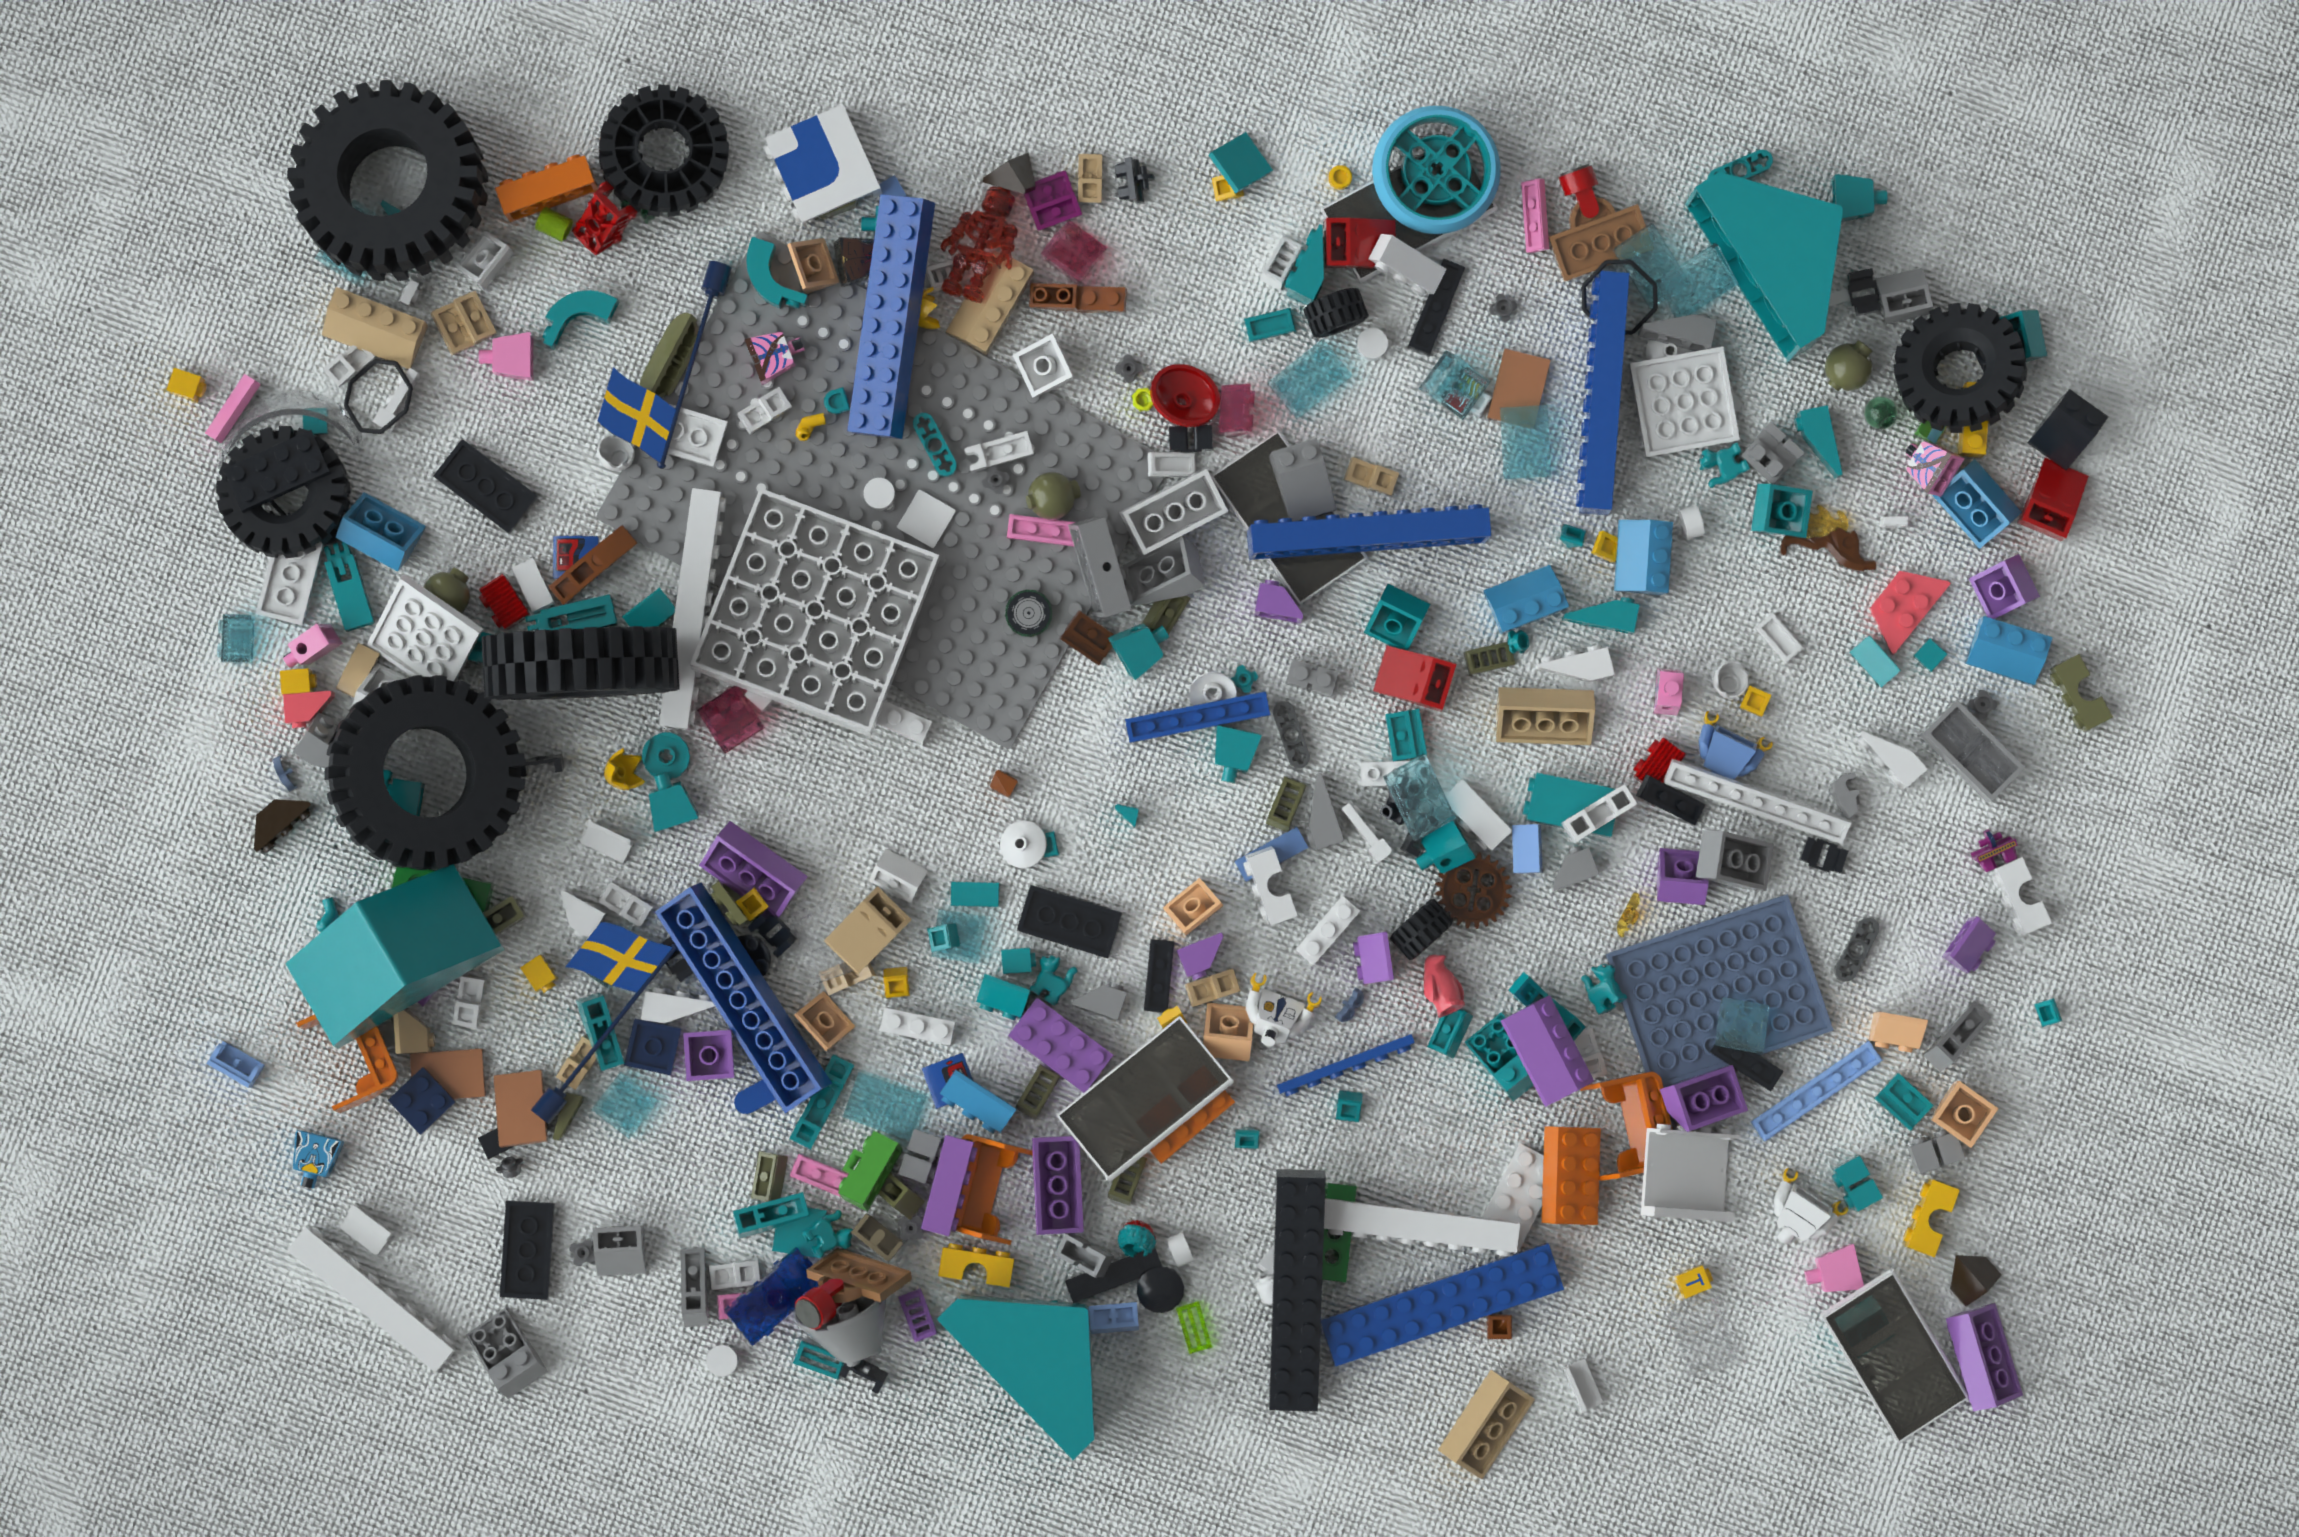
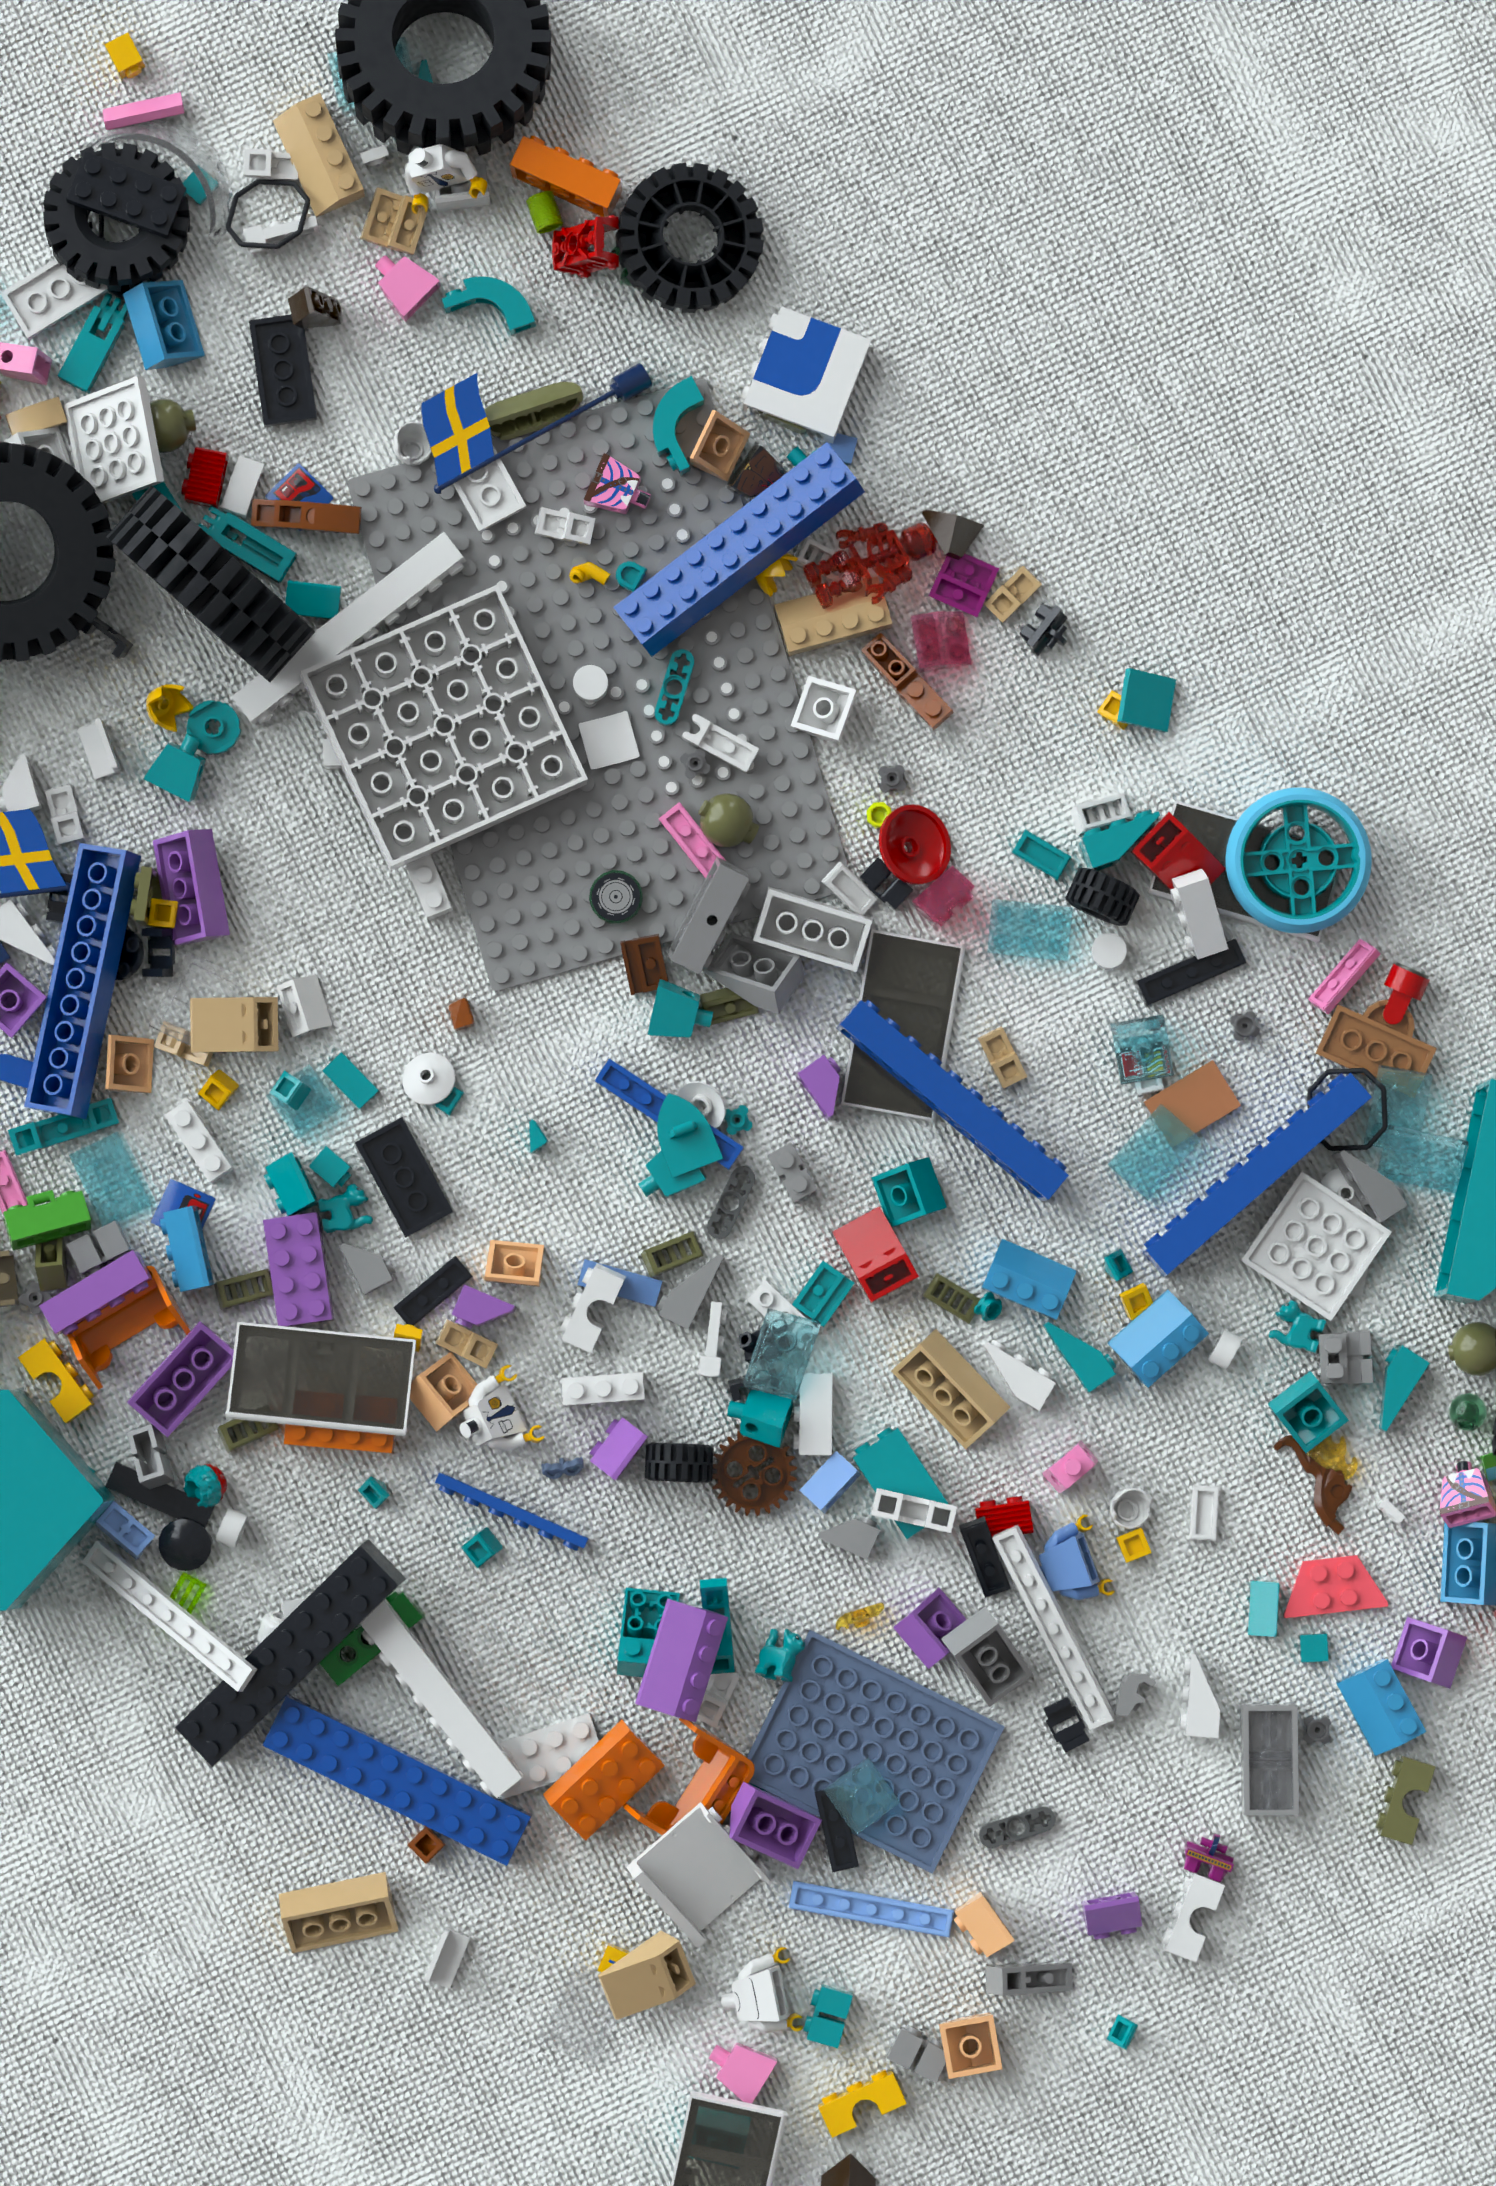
camera: 50 degrees right, 0 degrees up
(461, 260) = (439, 168): none -> white torso
(468, 428) = (314, 309): none -> dark brown slope
(730, 718) = (293, 748): clear pink slope -> none
(1197, 1342) = (169, 1616): none -> white plate
(1222, 721) = (685, 1136): none -> teal shield
(1303, 480) = (942, 1006): light grey slope -> none
(1340, 177) = (1216, 791): yellow tile -> none
(1442, 986) = (651, 1525): coral animal -> none
(1450, 1033) = (623, 1567): teal slope -> none
(1721, 1270) = (647, 1976): none -> tan slope
(1903, 1101) = (933, 1987): teal plate -> none

